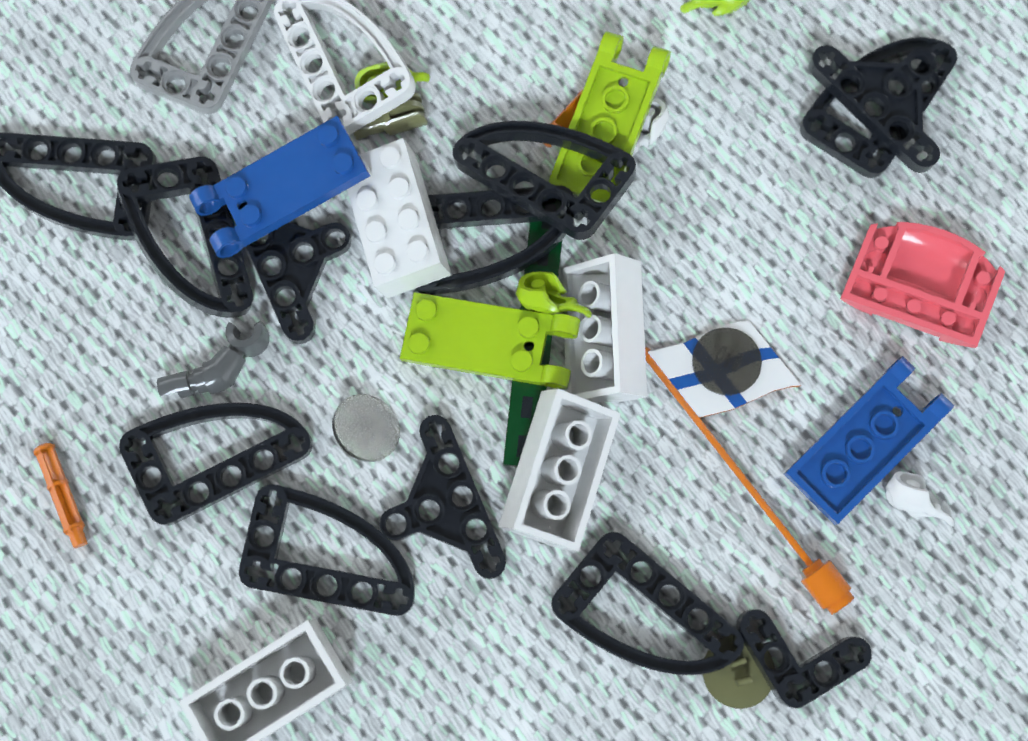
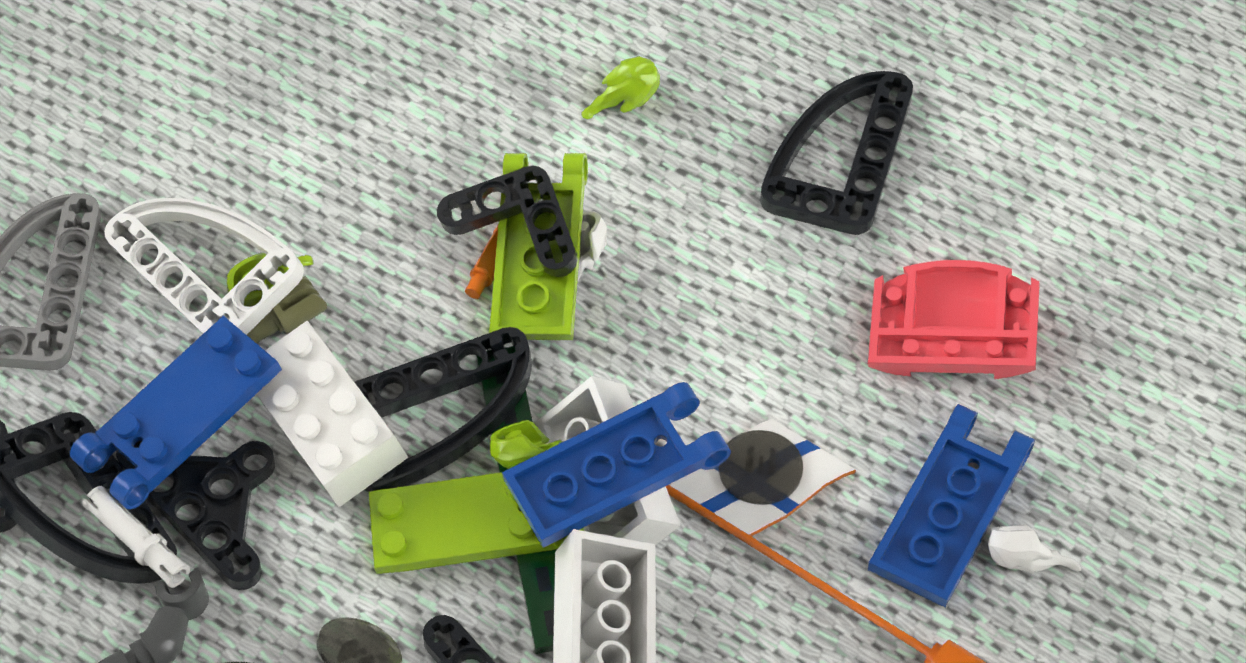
camera: 15 degrees left, 20 degrees down
(226, 294) = (148, 547): none -> white pin
(580, 207) = (398, 305): black beam -> none
(601, 78) = (517, 201): none -> black beam
(604, 339) = (611, 465): none -> blue hinge
(872, 86) = (827, 135): black beam -> none

